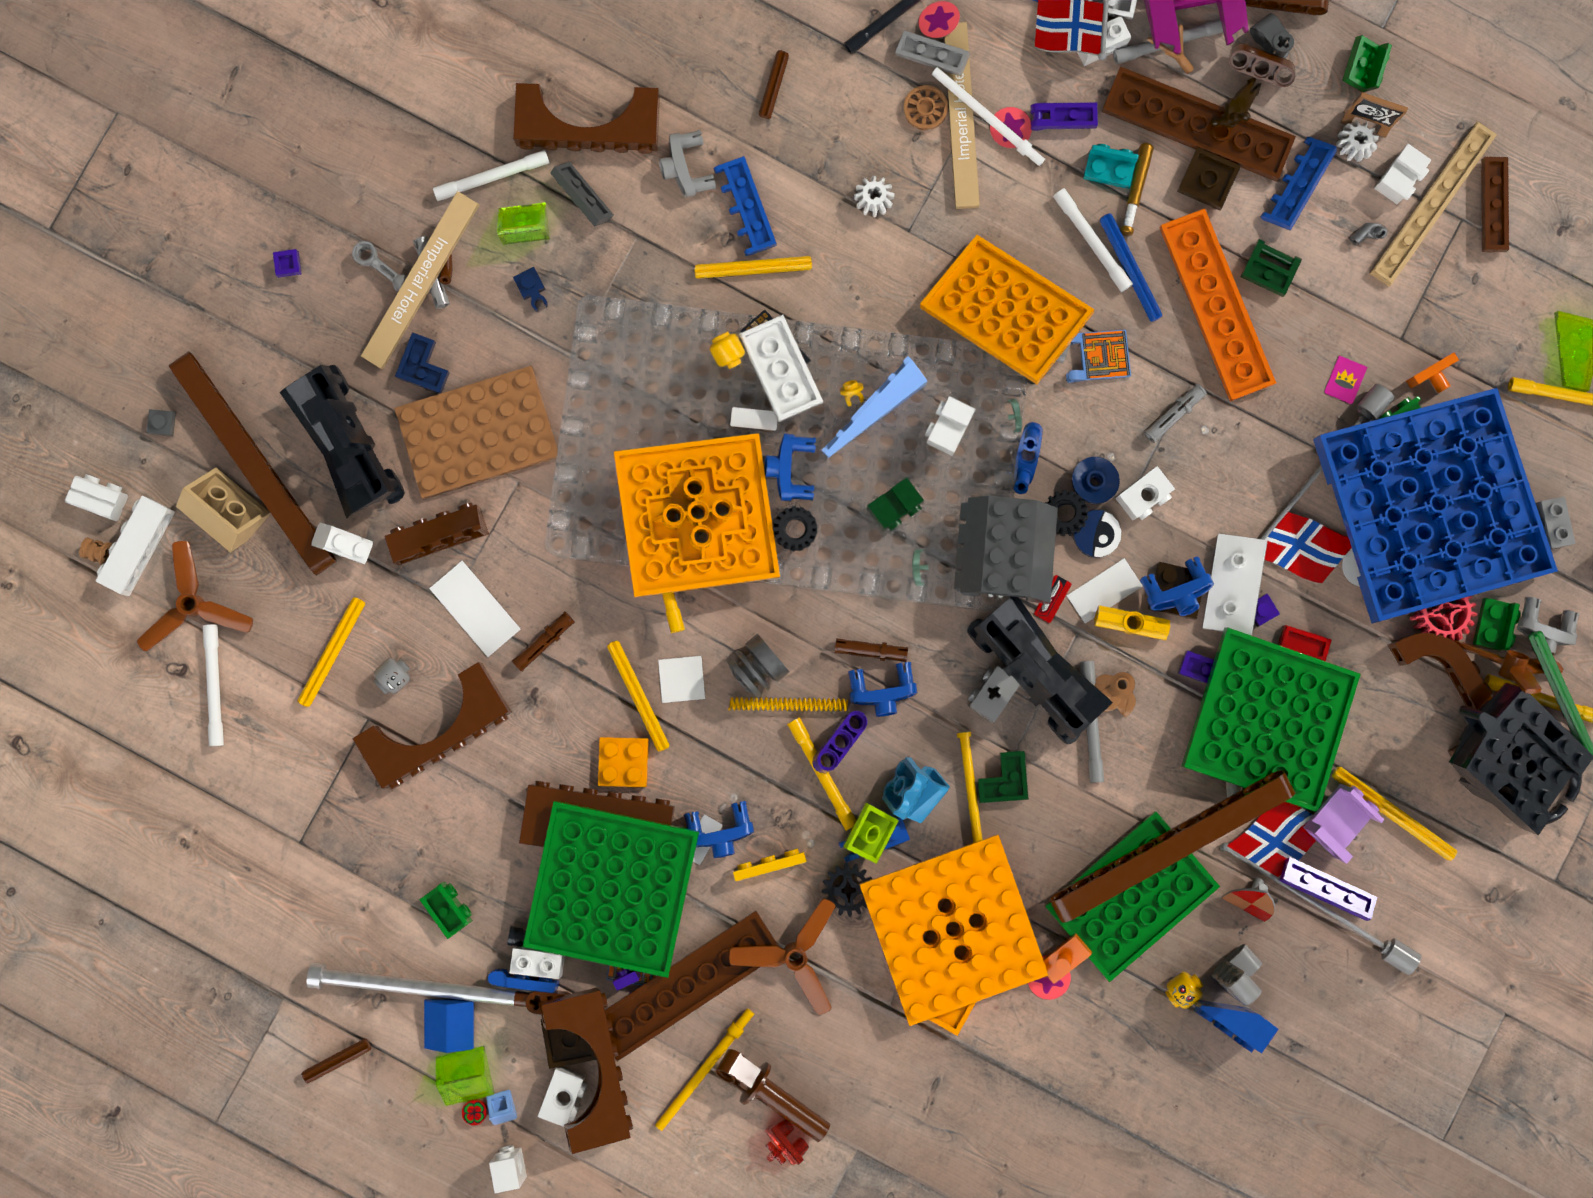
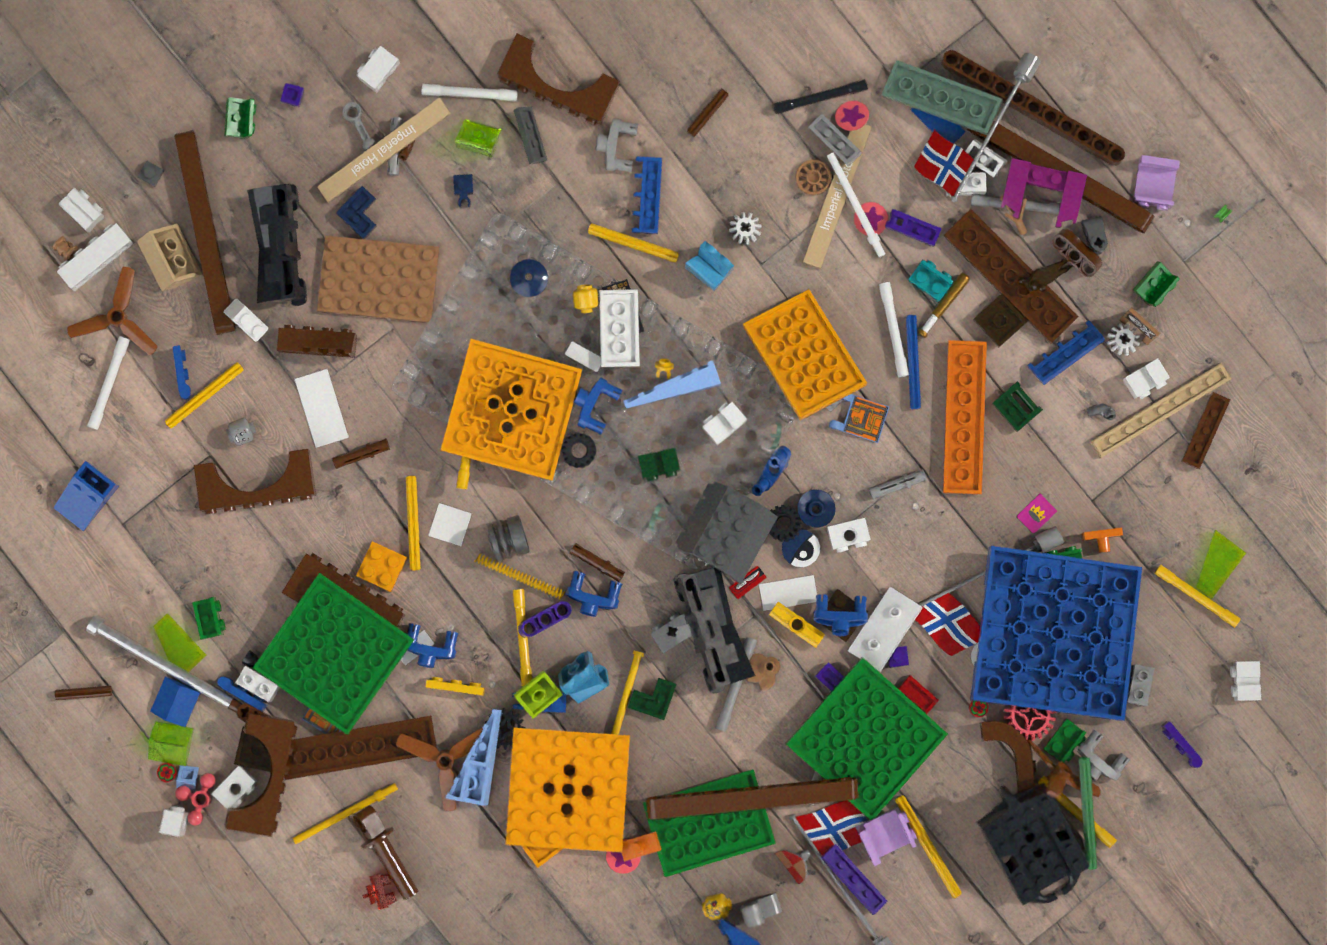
camera: 25 degrees right, 0 degrees up
(237, 314) = (239, 118): none -> green bracket
(240, 828) = (85, 495): none -> slope
(293, 637) = (181, 373): none -> blue hinge
(373, 191) = (377, 68): none -> white brick
(424, 955) = (178, 644): none -> clear neon green wing
(505, 1128) = (184, 793): none -> coral piece
(625, 977) = (317, 722): dark purple plate -> none
(653, 367) = (531, 287): none -> dark blue dish
(839, 960) = (475, 777): none -> light blue wedge
(853, 254) = (709, 266): none -> dark azure piece
(1380, 630) = (978, 708): none -> tile

